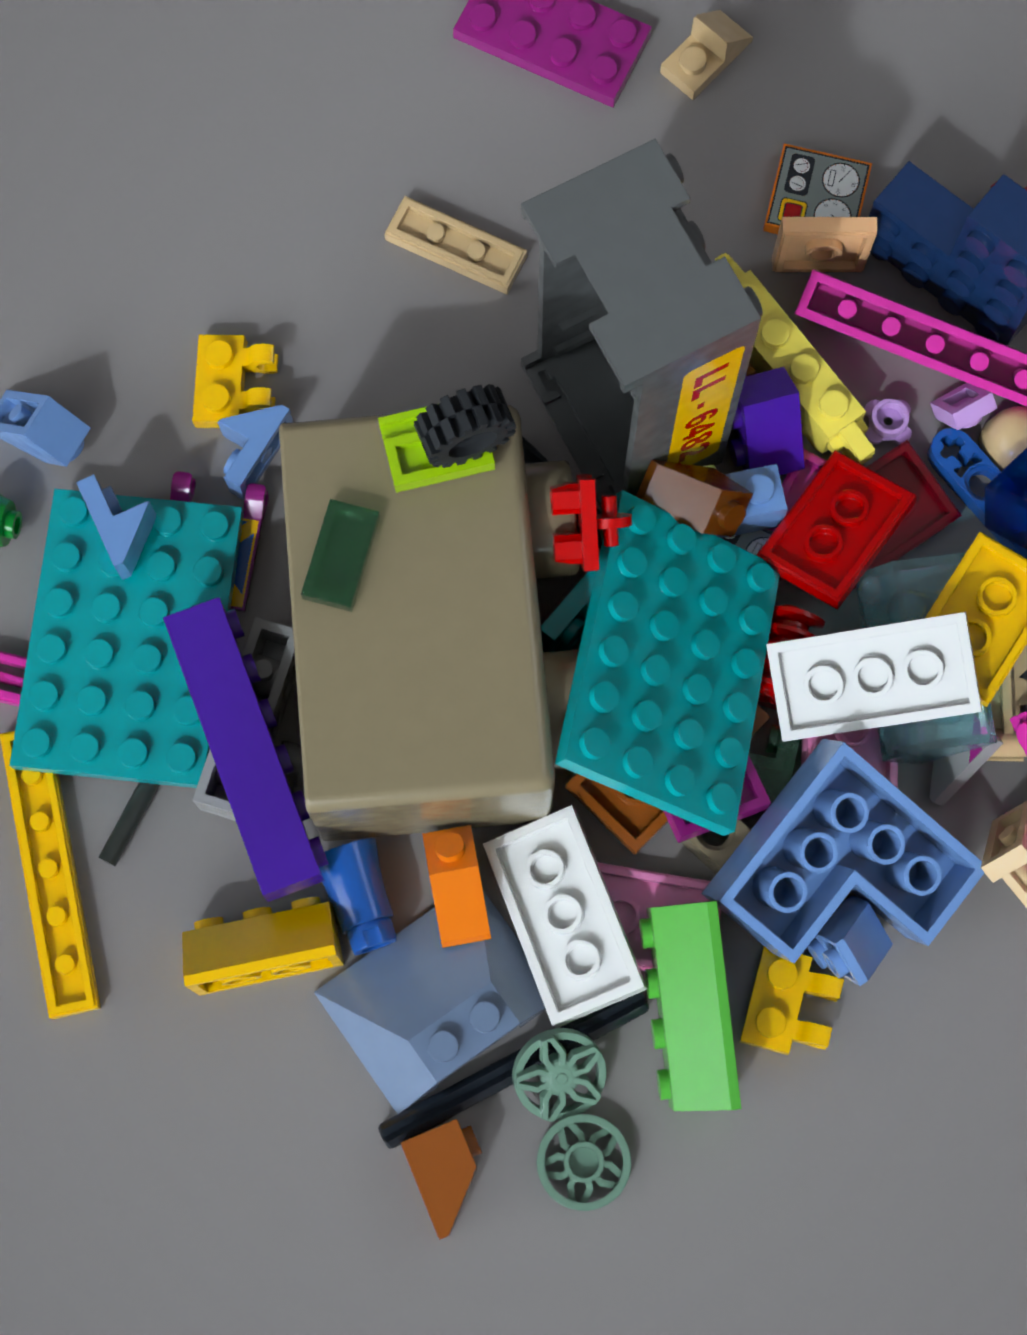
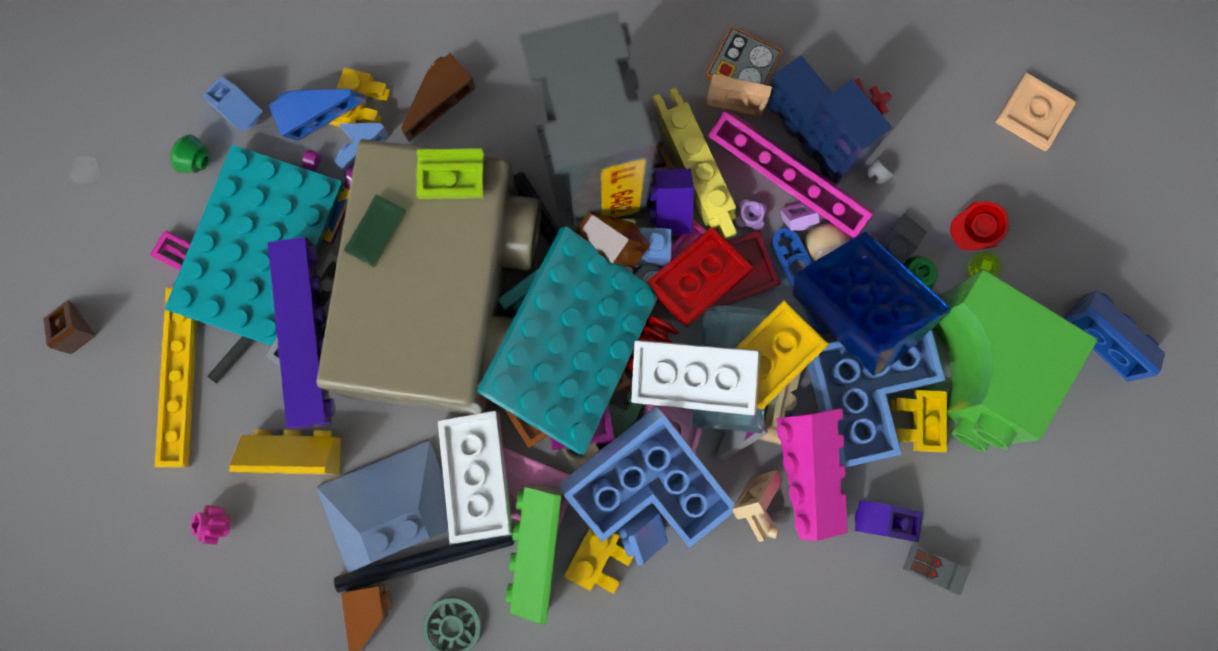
camera: 10 degrees right, 5 degrees up
(121, 531) = (259, 182): medium blue slope -> none
(162, 410) = (309, 110): none -> blue slope
(163, 1086) = (210, 524): none -> dark pink gear
(359, 895) = (354, 436): blue plant -> none
(361, 334) = (440, 90): none -> reddish brown slope
(456, 245) = (502, 37): tan tile -> none
(456, 886) = (413, 444): orange slope -> none
(465, 425) = (464, 168): black tyre -> none
(559, 1074) = (448, 572): sand green wheel -> none
(580, 499) = (531, 256): red hips -> none

